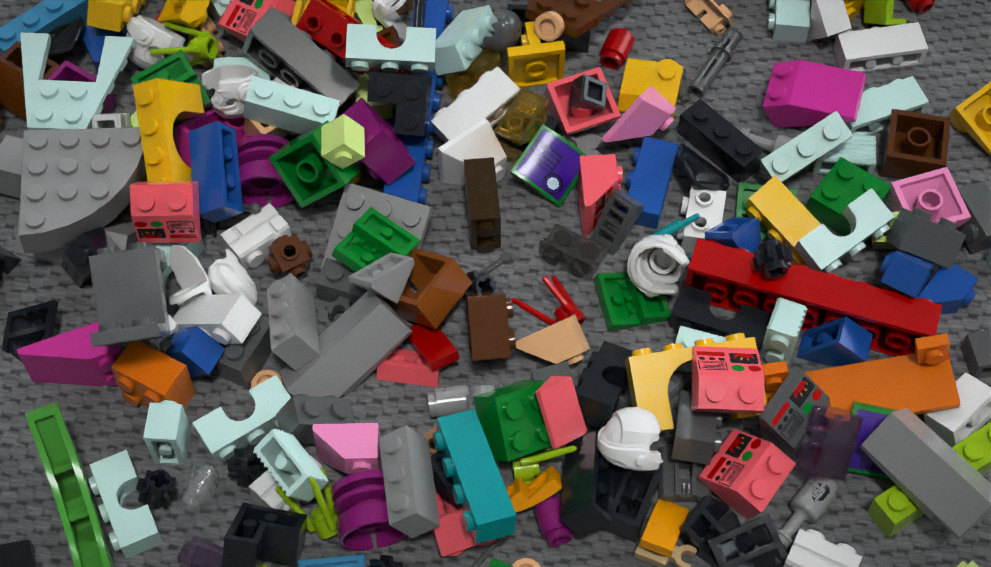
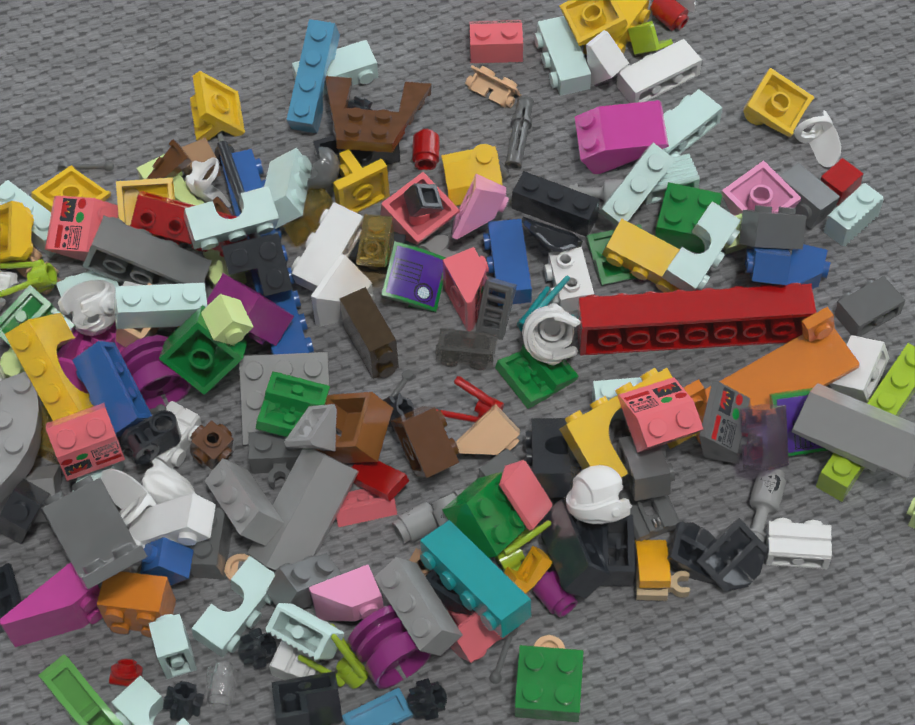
camera: 20 degrees left, 0 degrees up
(118, 441) = (125, 672): none -> red plate
(236, 229) = (152, 436): none -> black piece
(549, 26) = (364, 149): light nougat tile -> none
(694, 312) = (598, 365): black arch -> none
(737, 233) = (608, 281): blue slope -> none
(746, 472) = (704, 489): coral slope -> none
(773, 259) = (654, 293): black gear -> none
(783, 331) = (684, 353): light aqua brick -> none
(835, 343) = (730, 349): blue slope -> none
(914, 144) = (725, 150): reddish brown brick -> none

